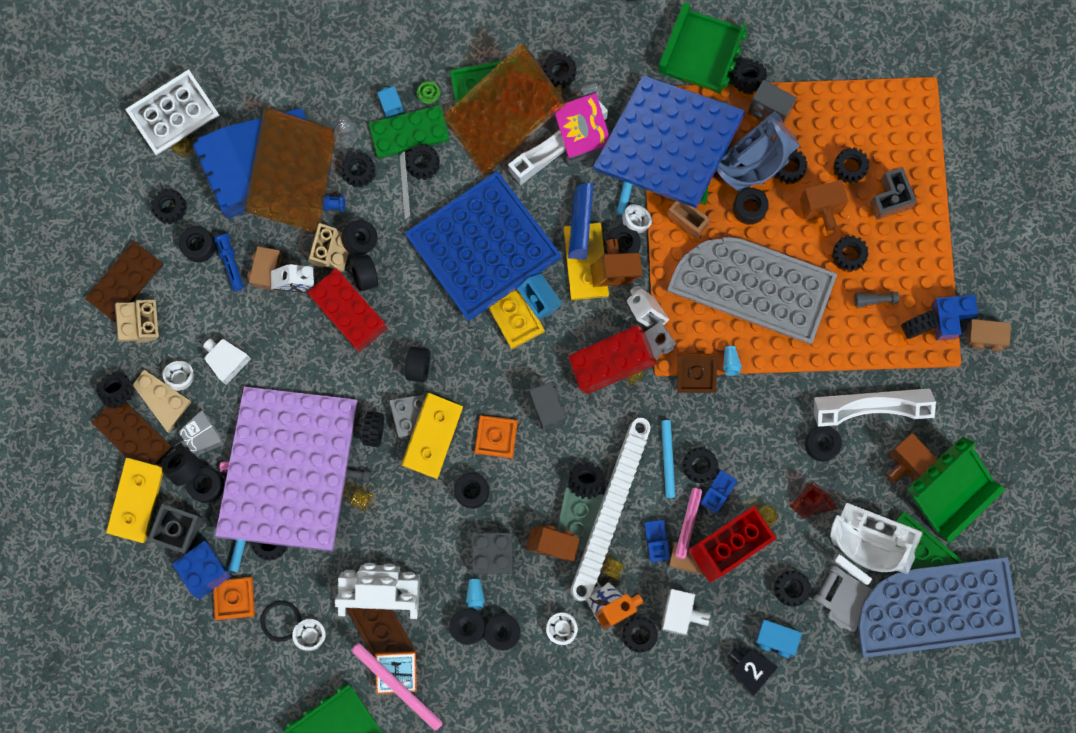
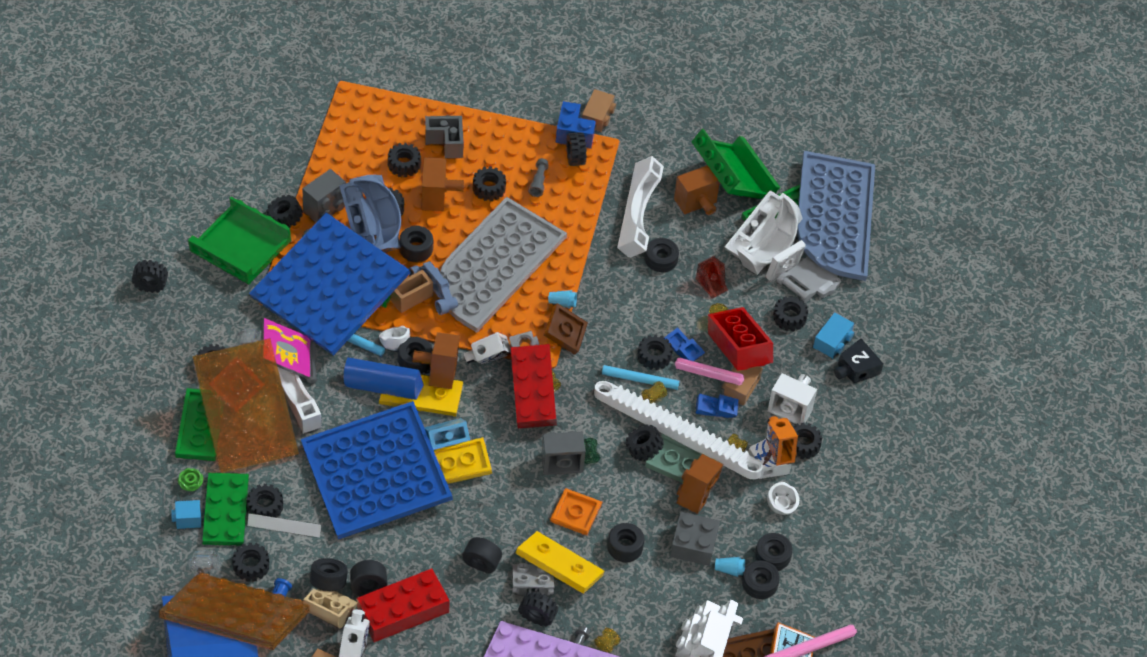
camera: 85 degrees left, 25 degrees down
(565, 432) = (591, 451): none -> clear green bush
(651, 476) = (654, 392): none -> clear yellow bush
(718, 221) = (440, 287): none -> sand blue plate

